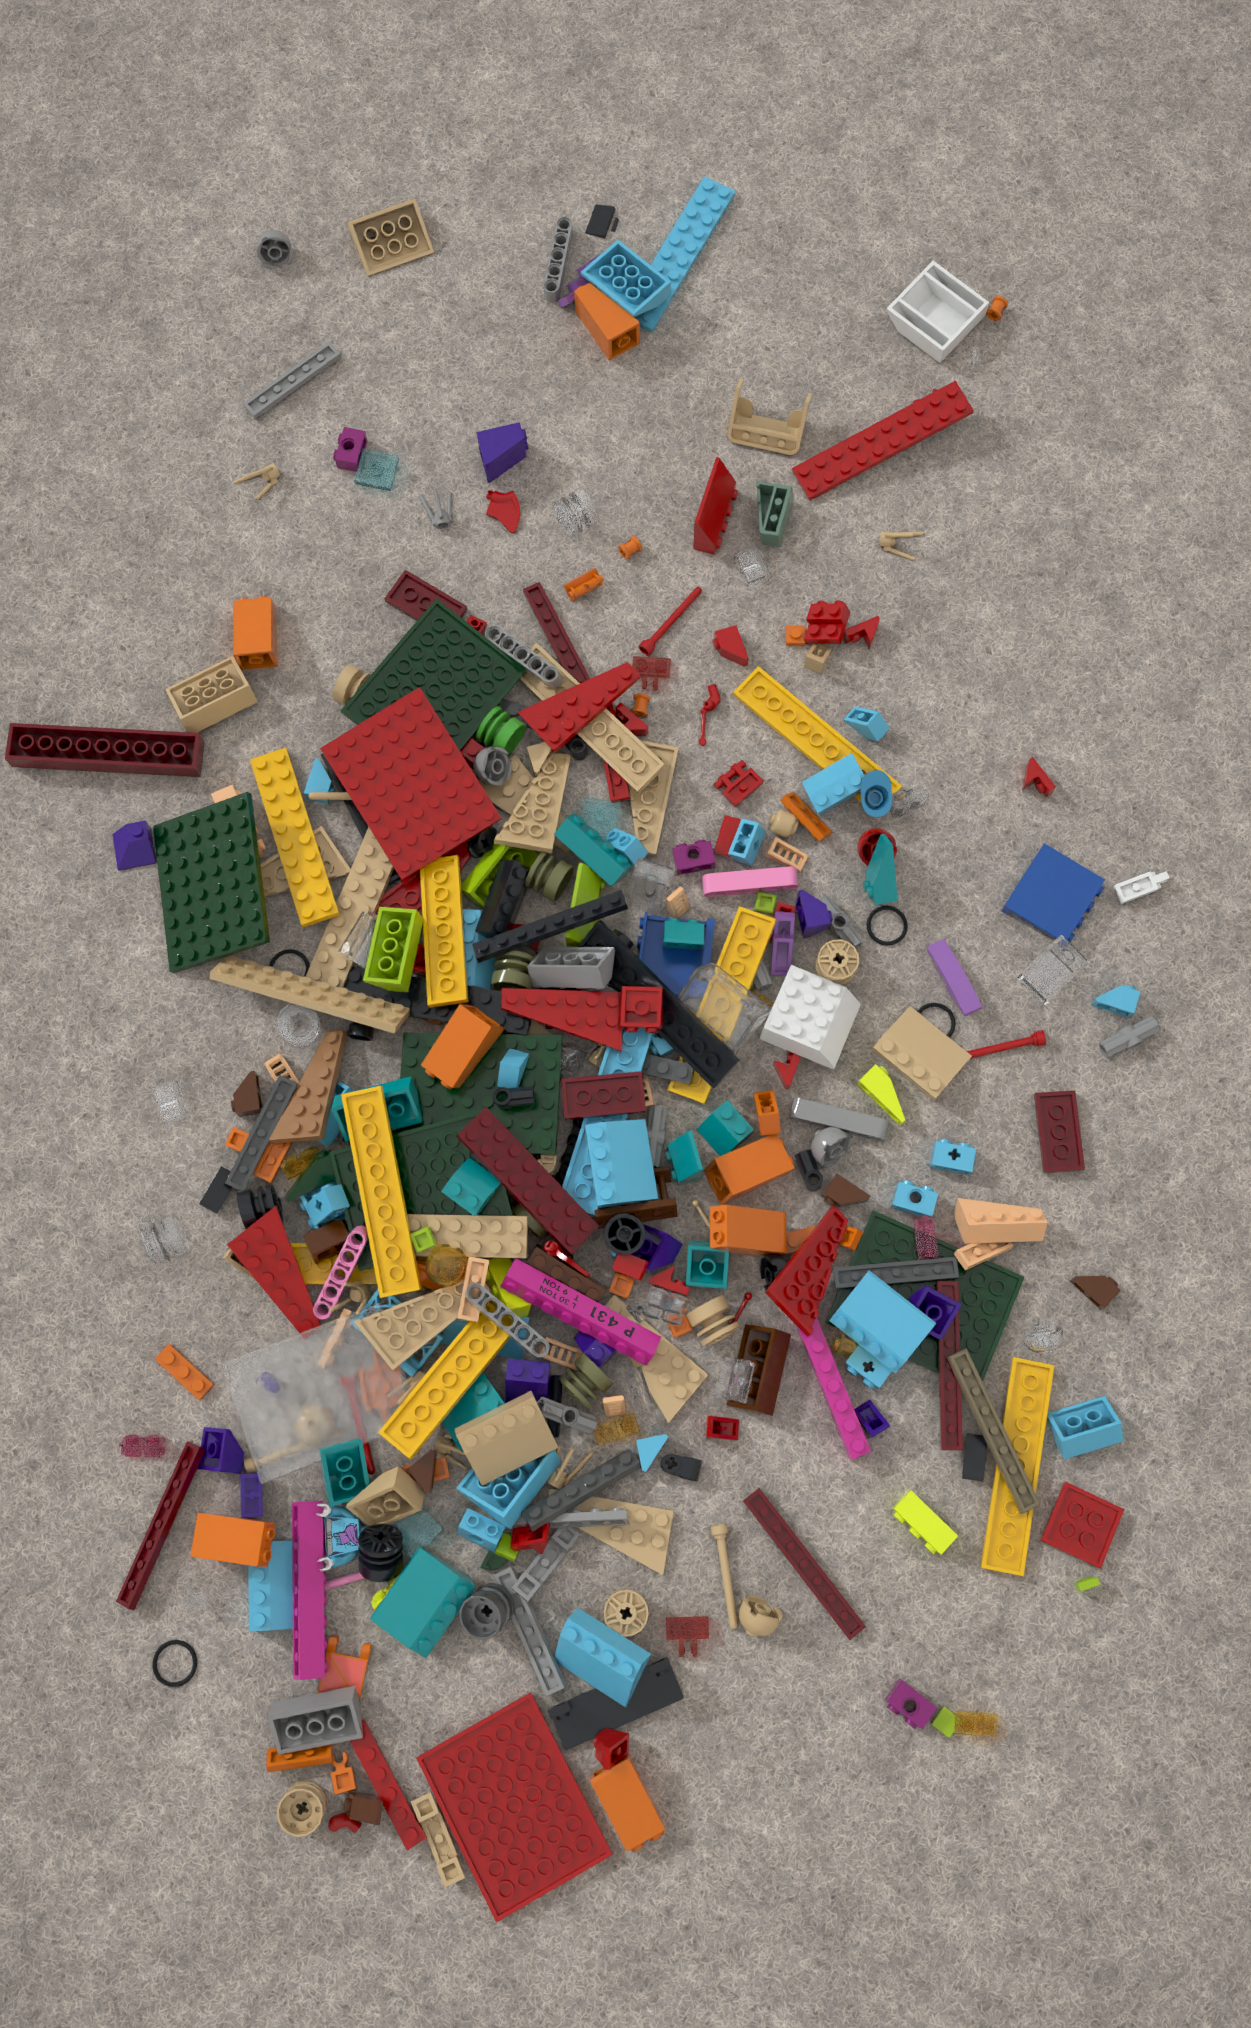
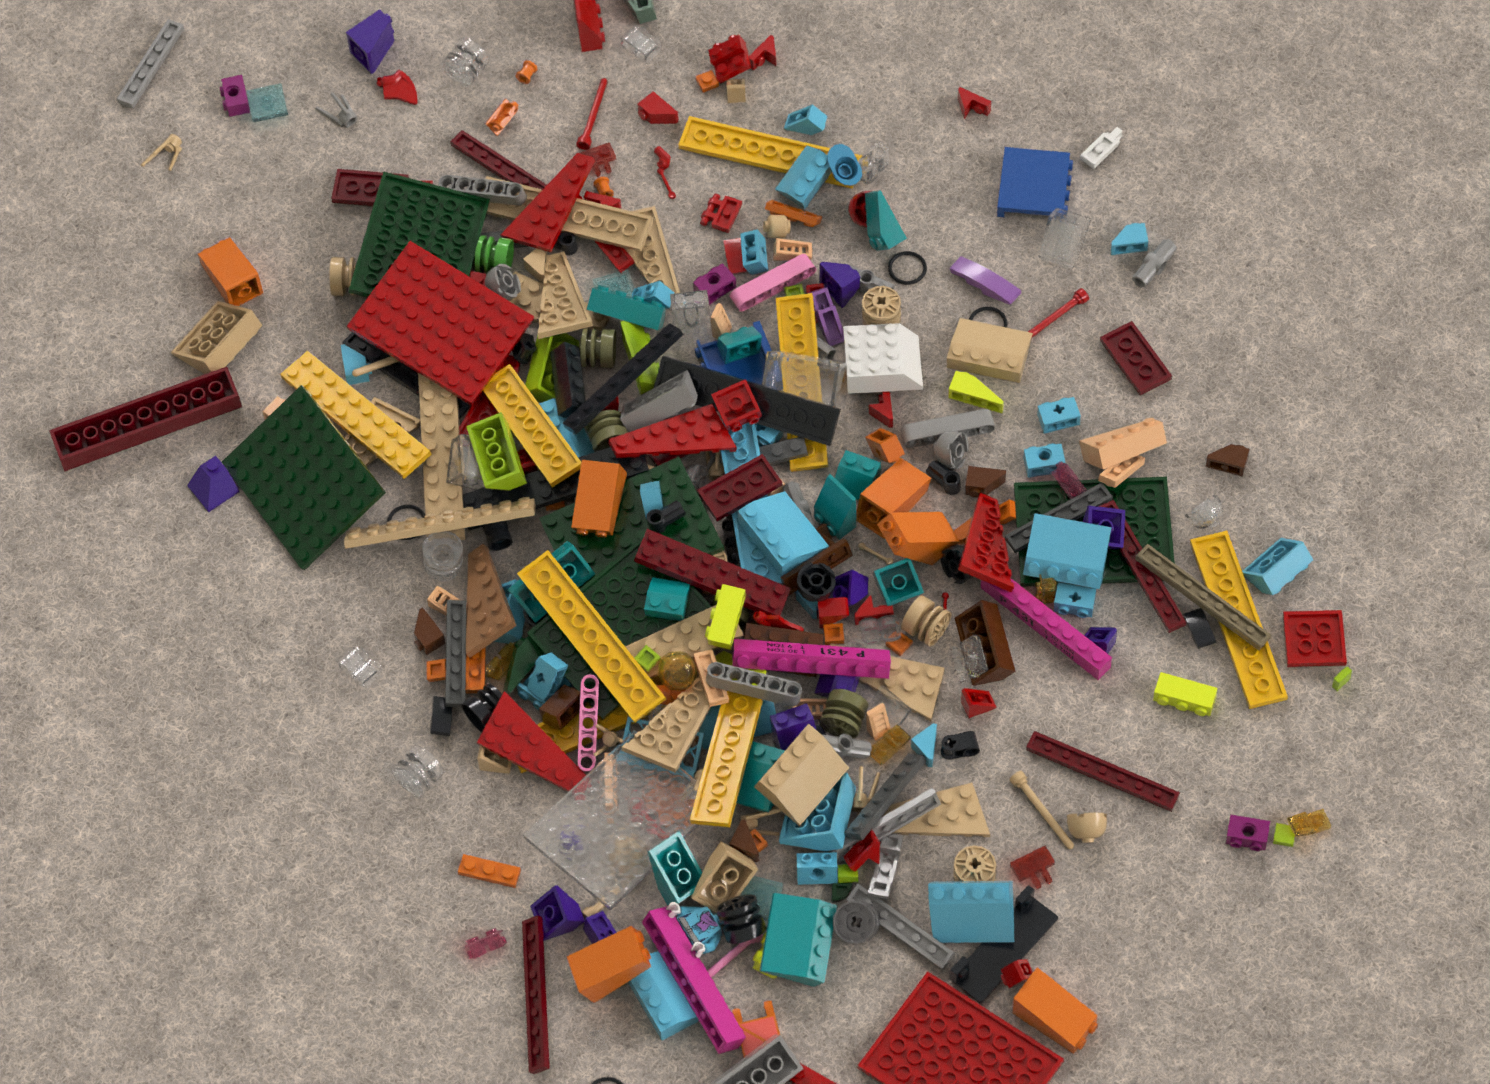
camera: 25 degrees left, 15 degrees down
(514, 1237) = (725, 616): none -> neon yellow brick

